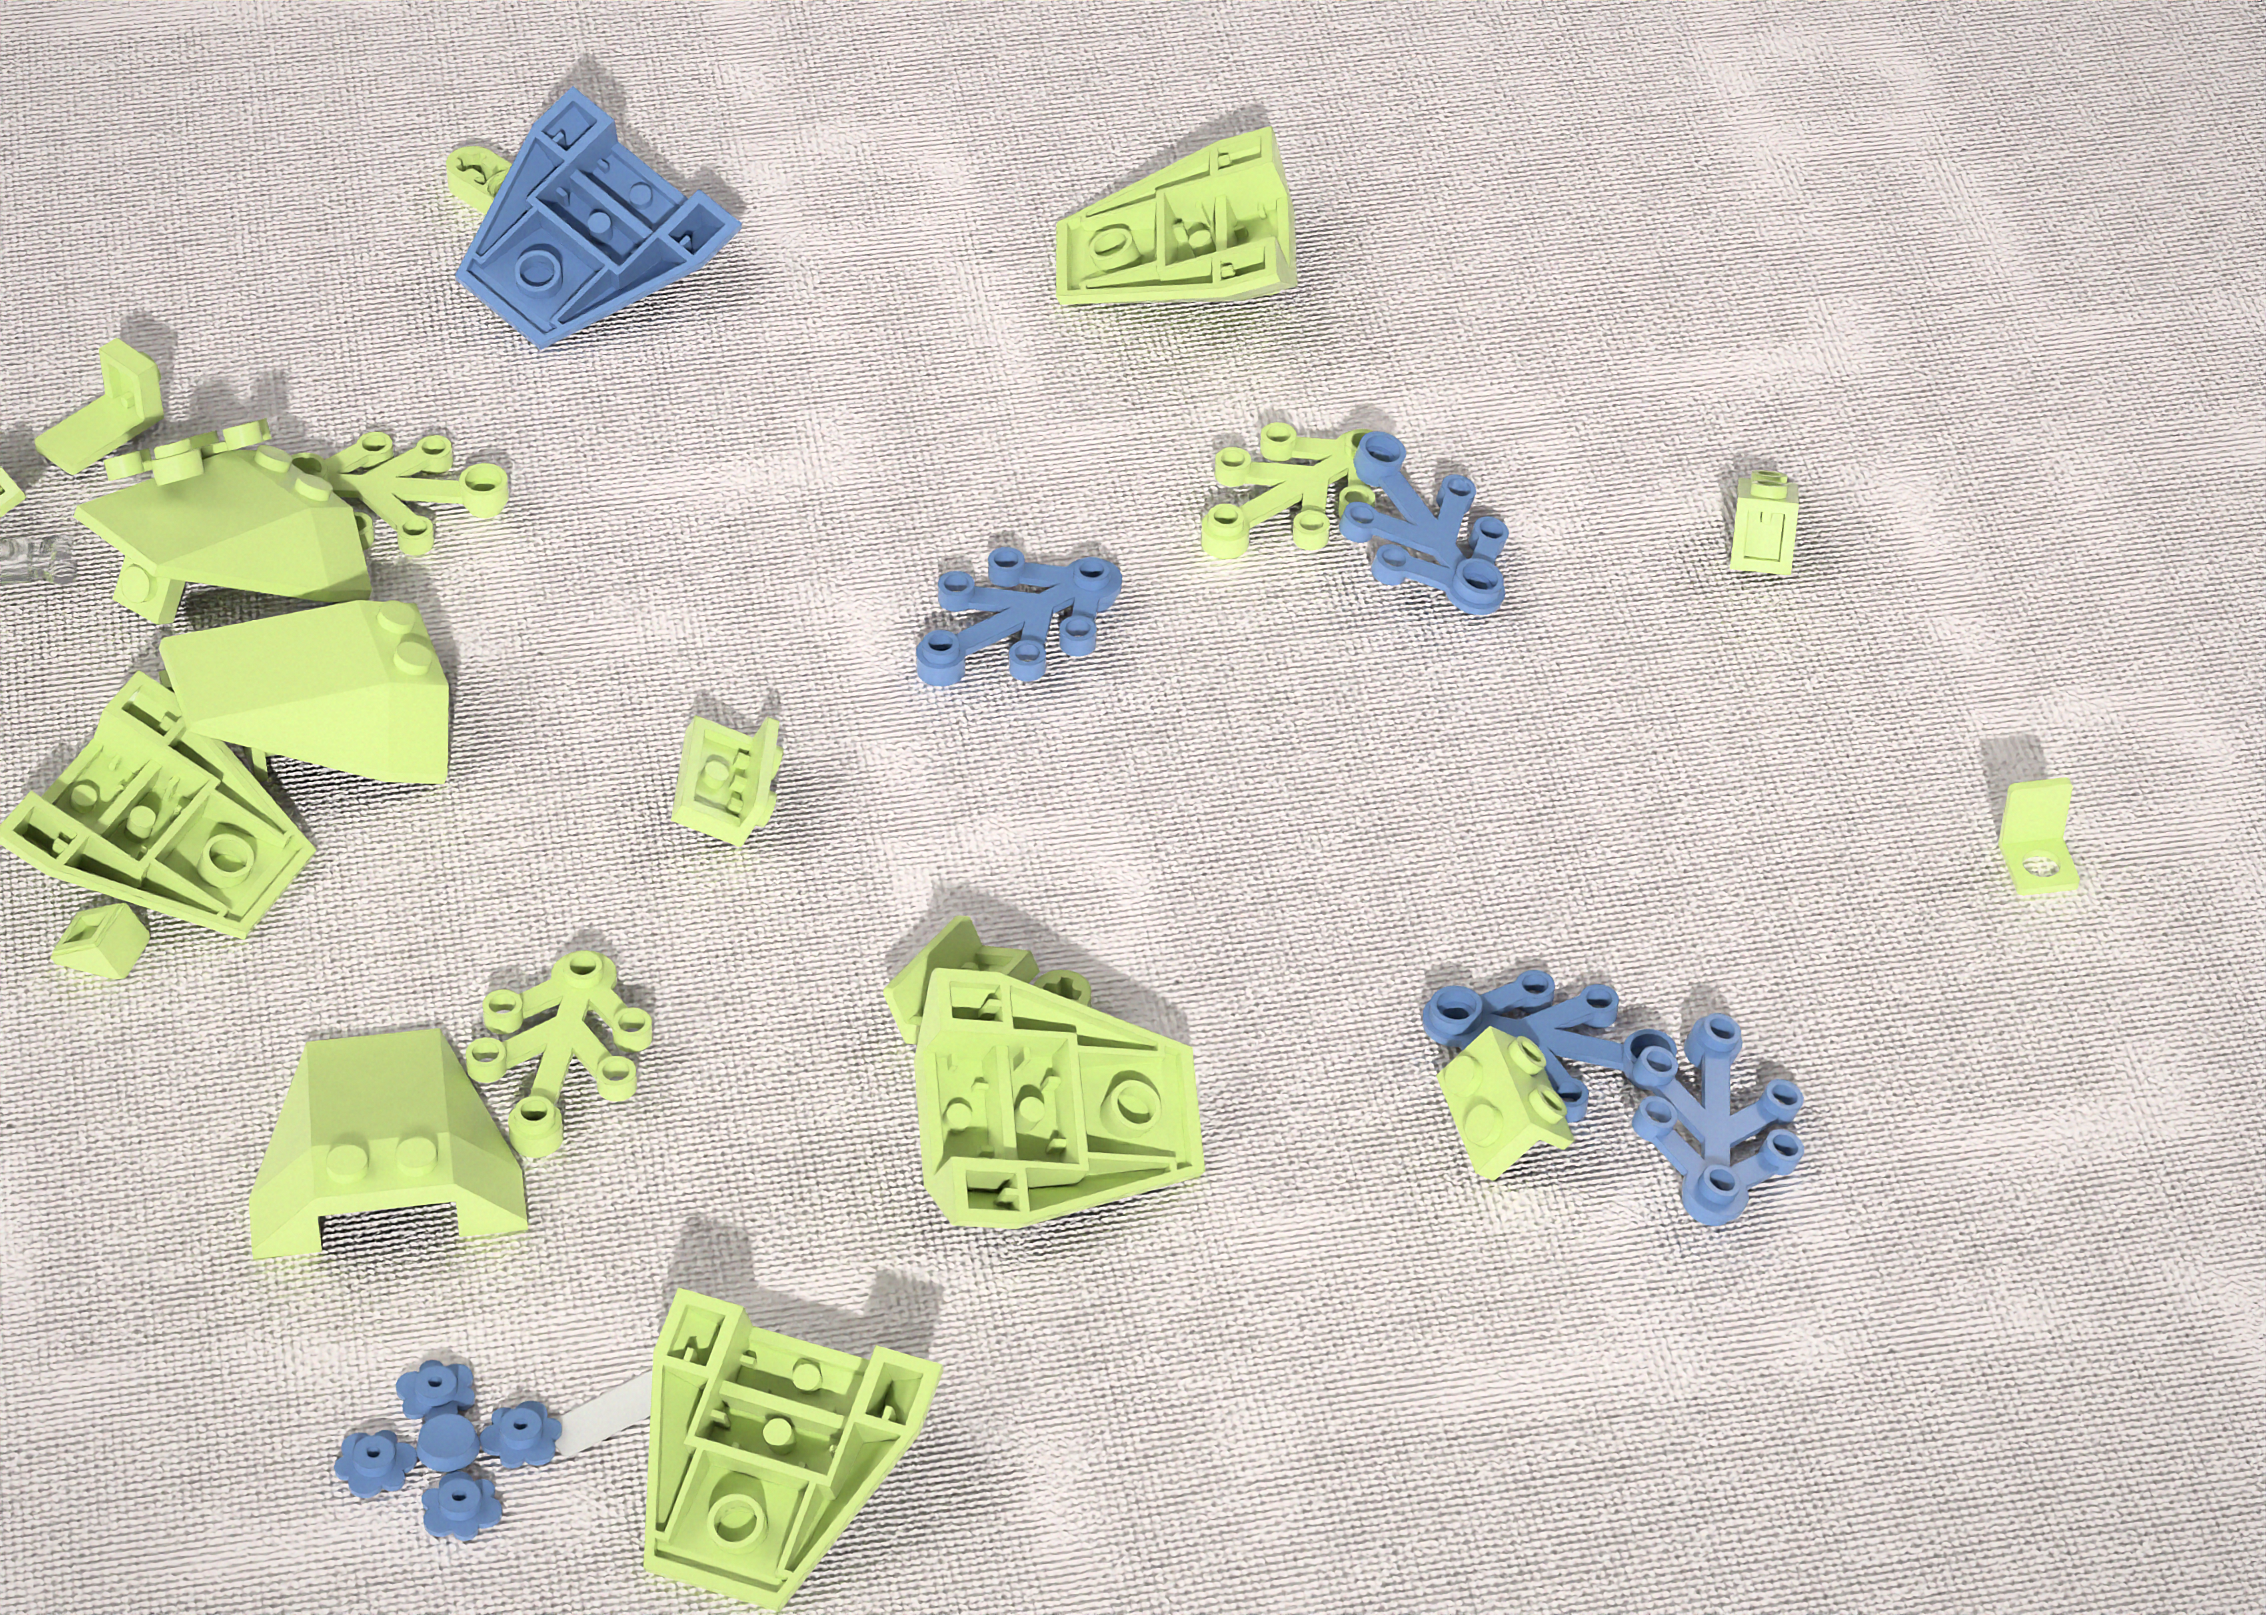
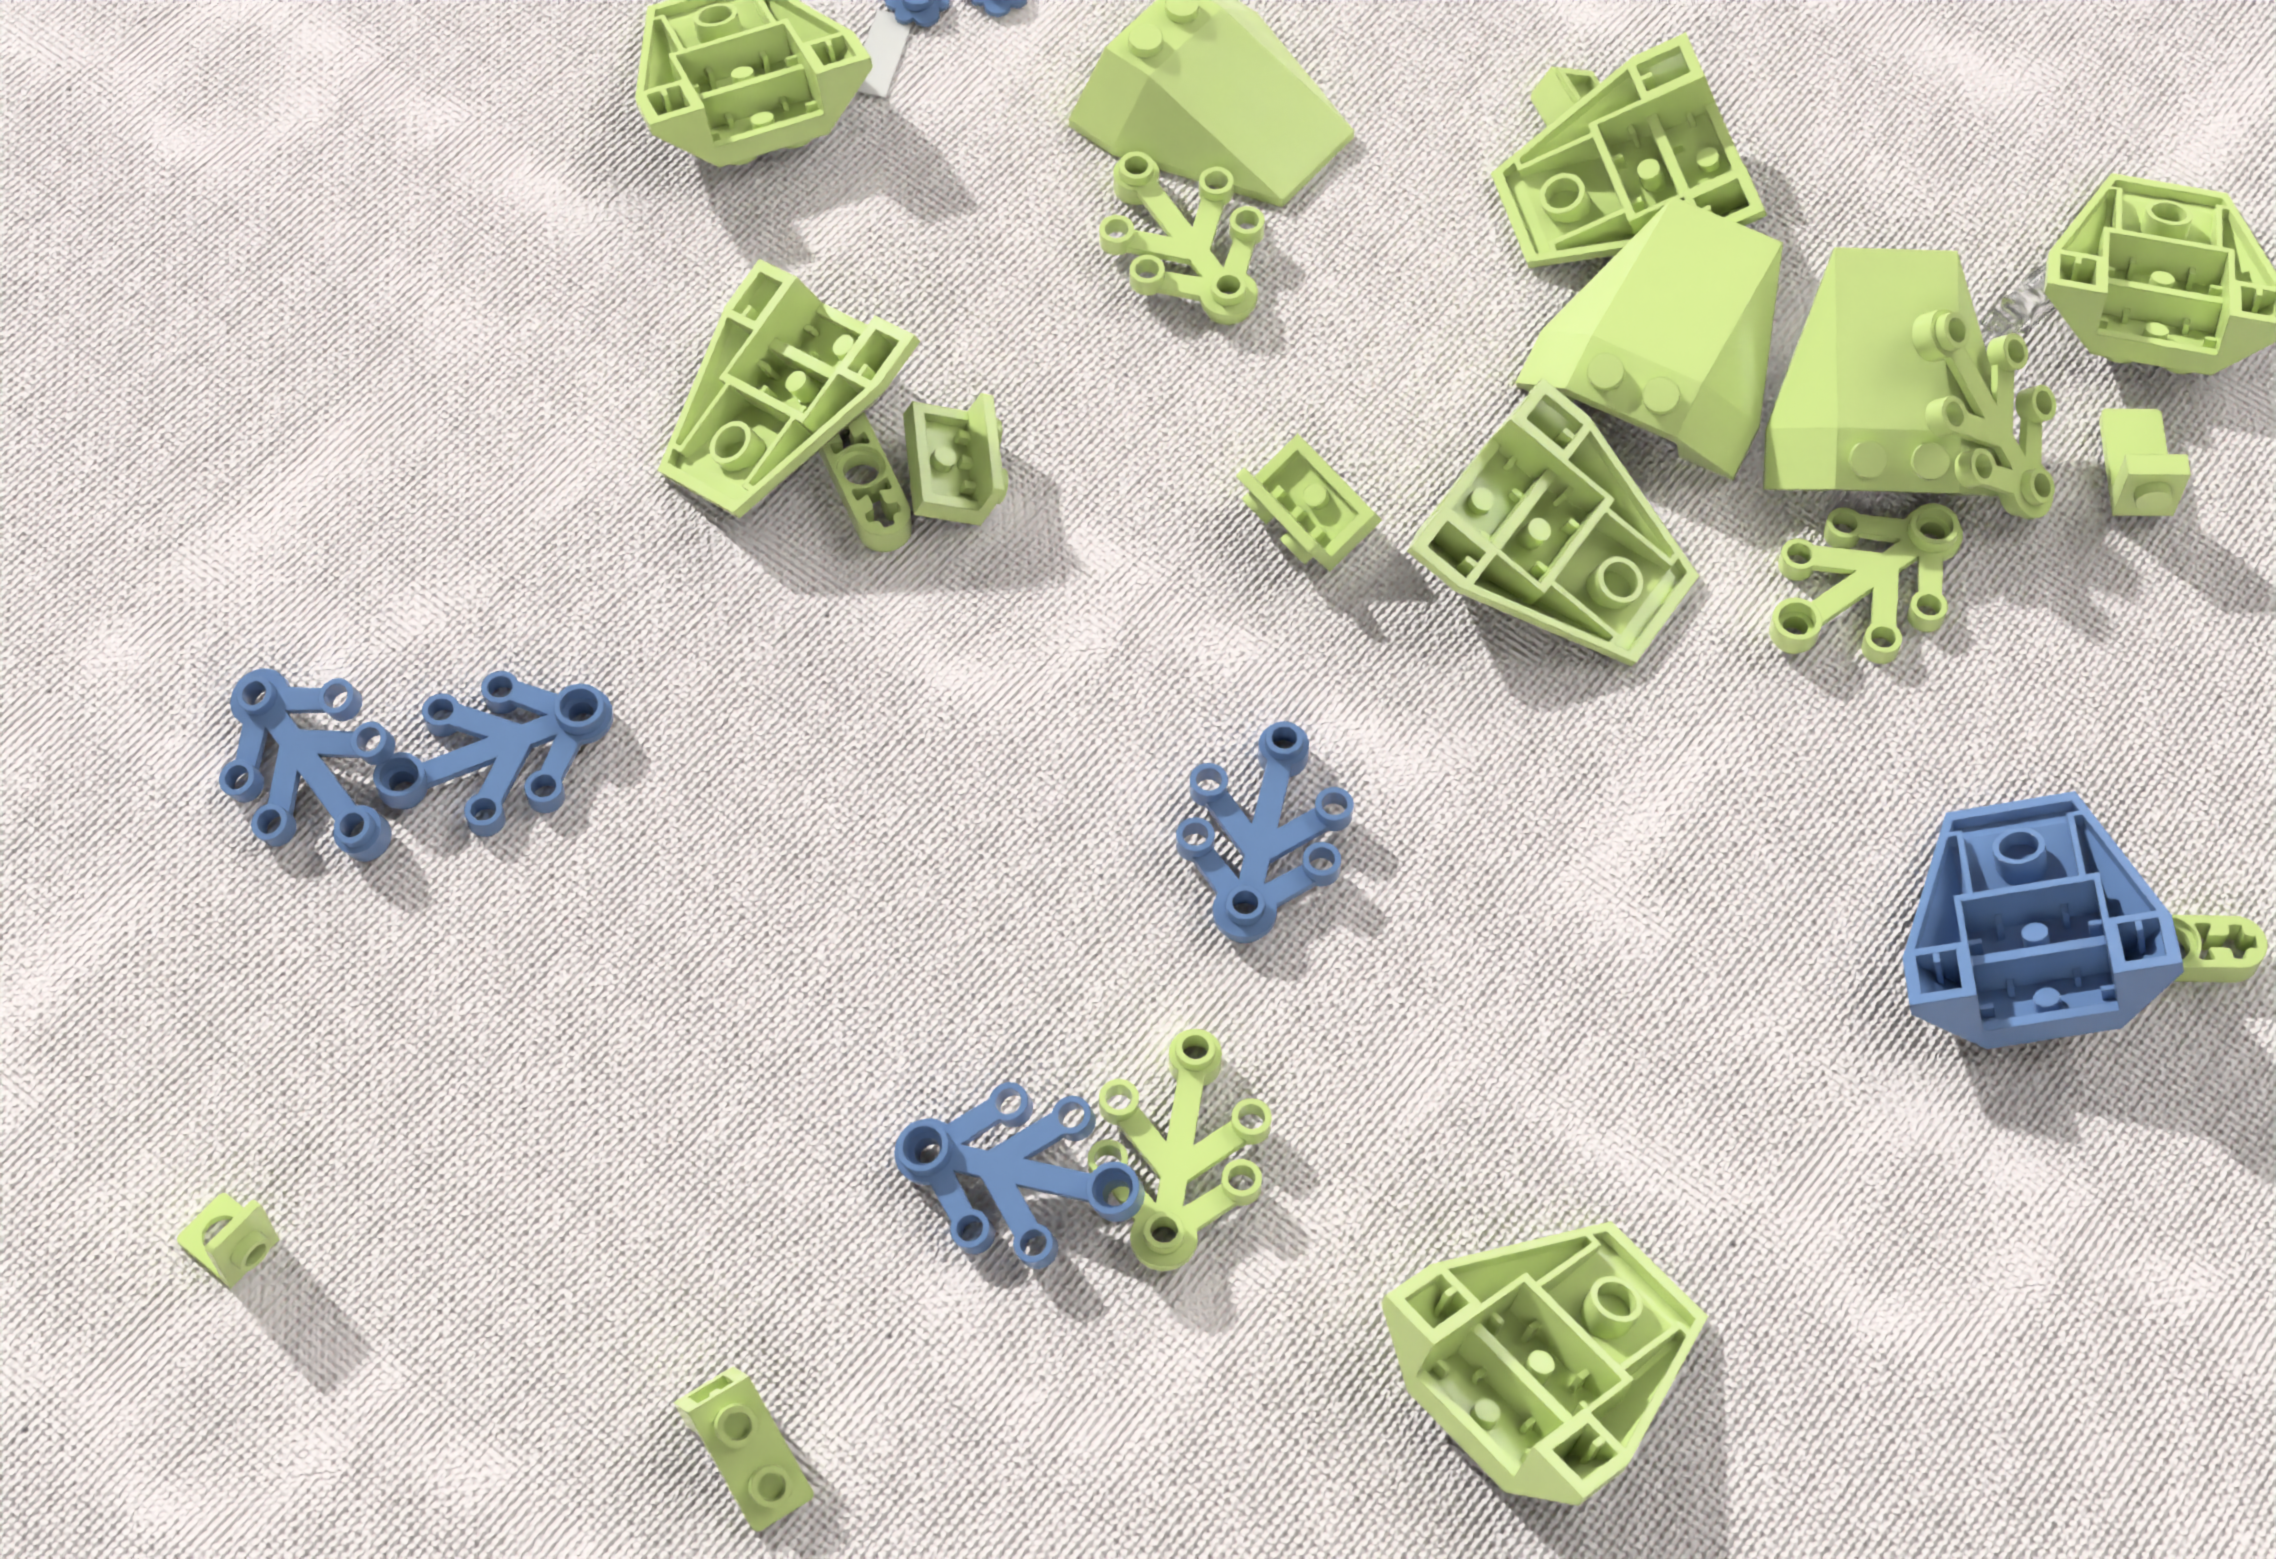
camera: 140 degrees right, 15 degrees up
(587, 642) = (1557, 533): none -> yellowish green wedge
(1502, 1101) = (471, 653): yellowish green bracket -> none

